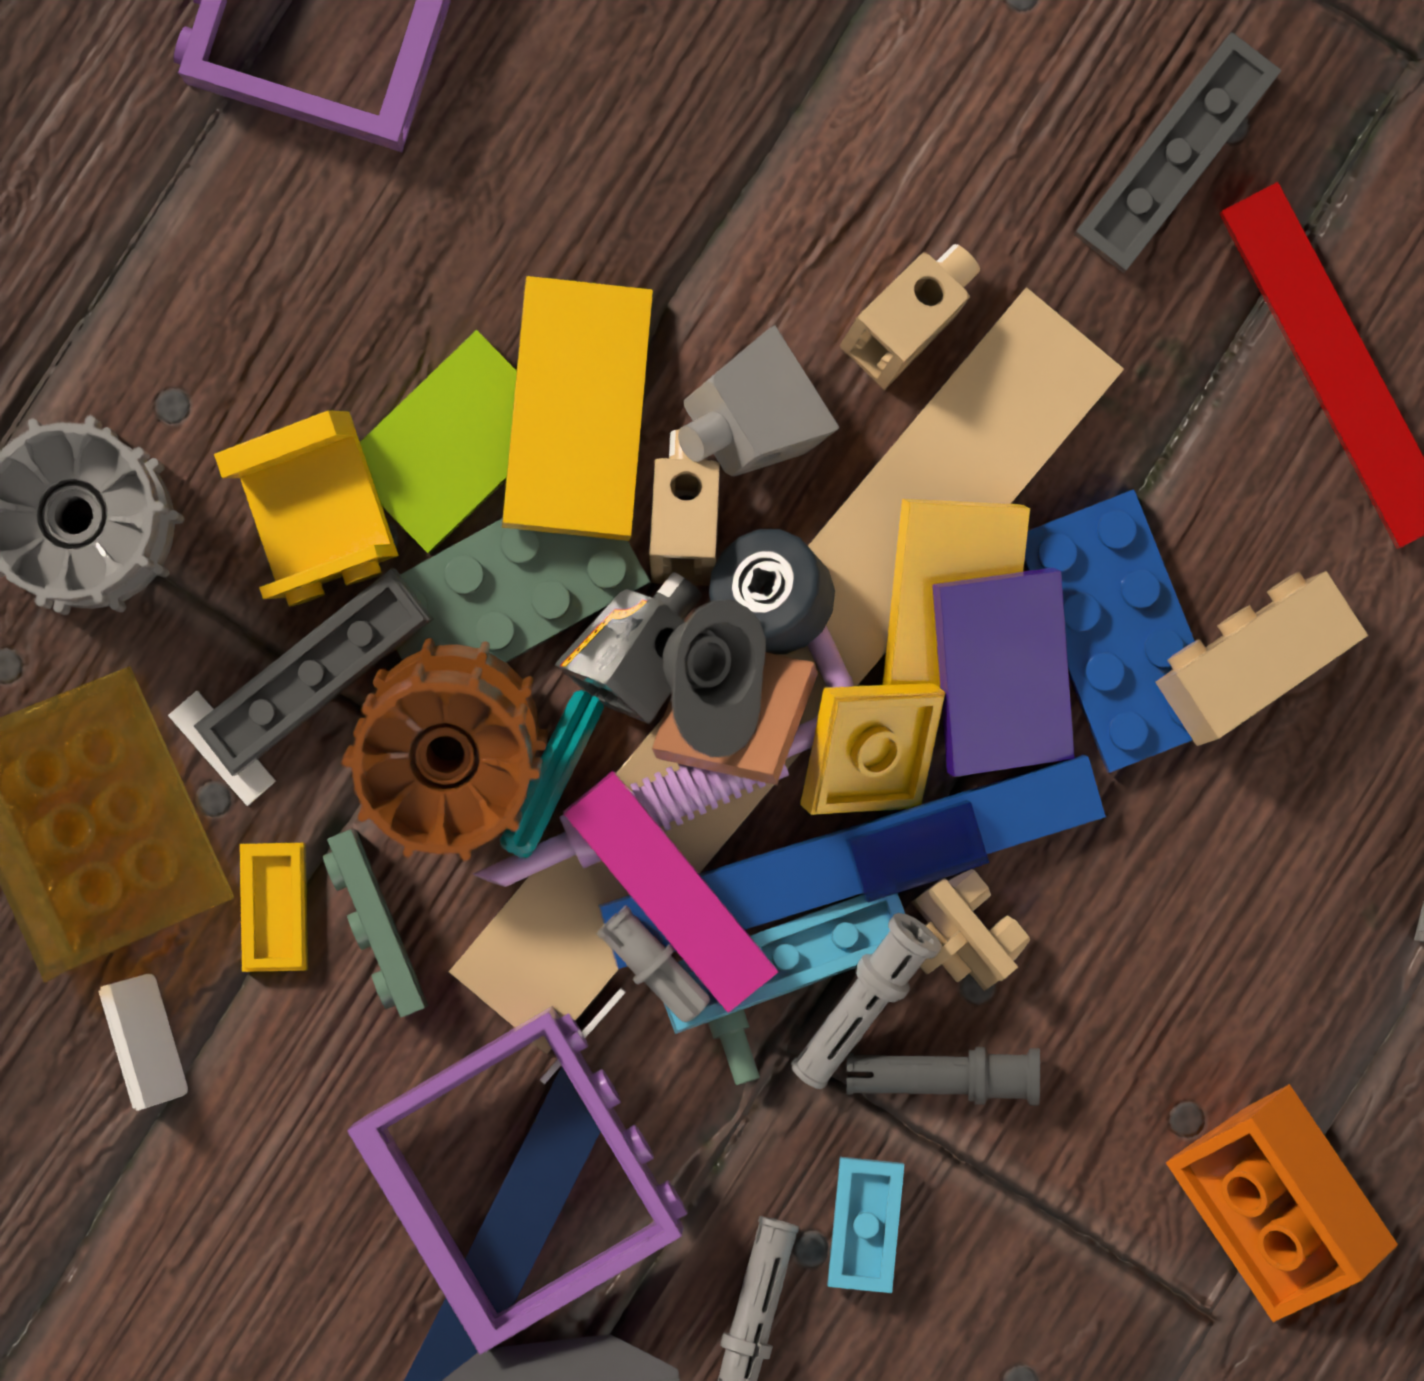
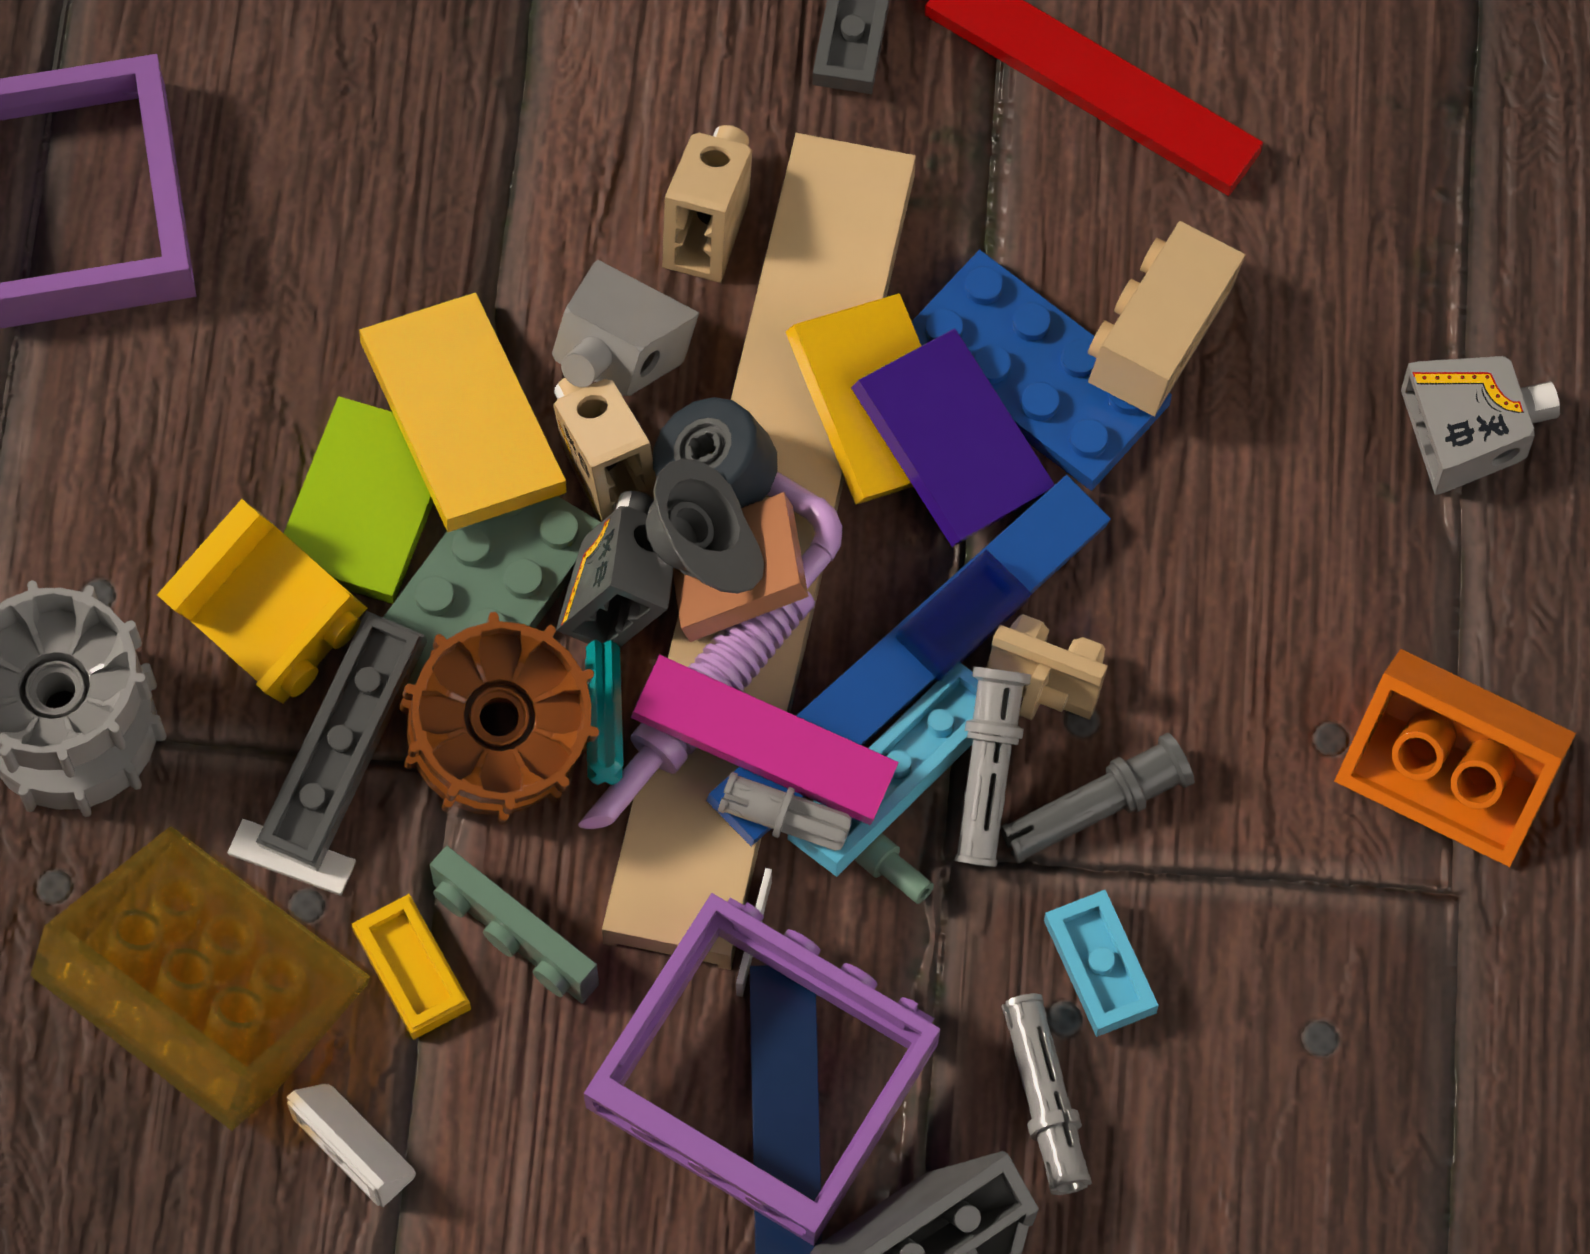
camera: 30 degrees left, 20 degrees down
(872, 748) = (874, 548): yellow tile -> none

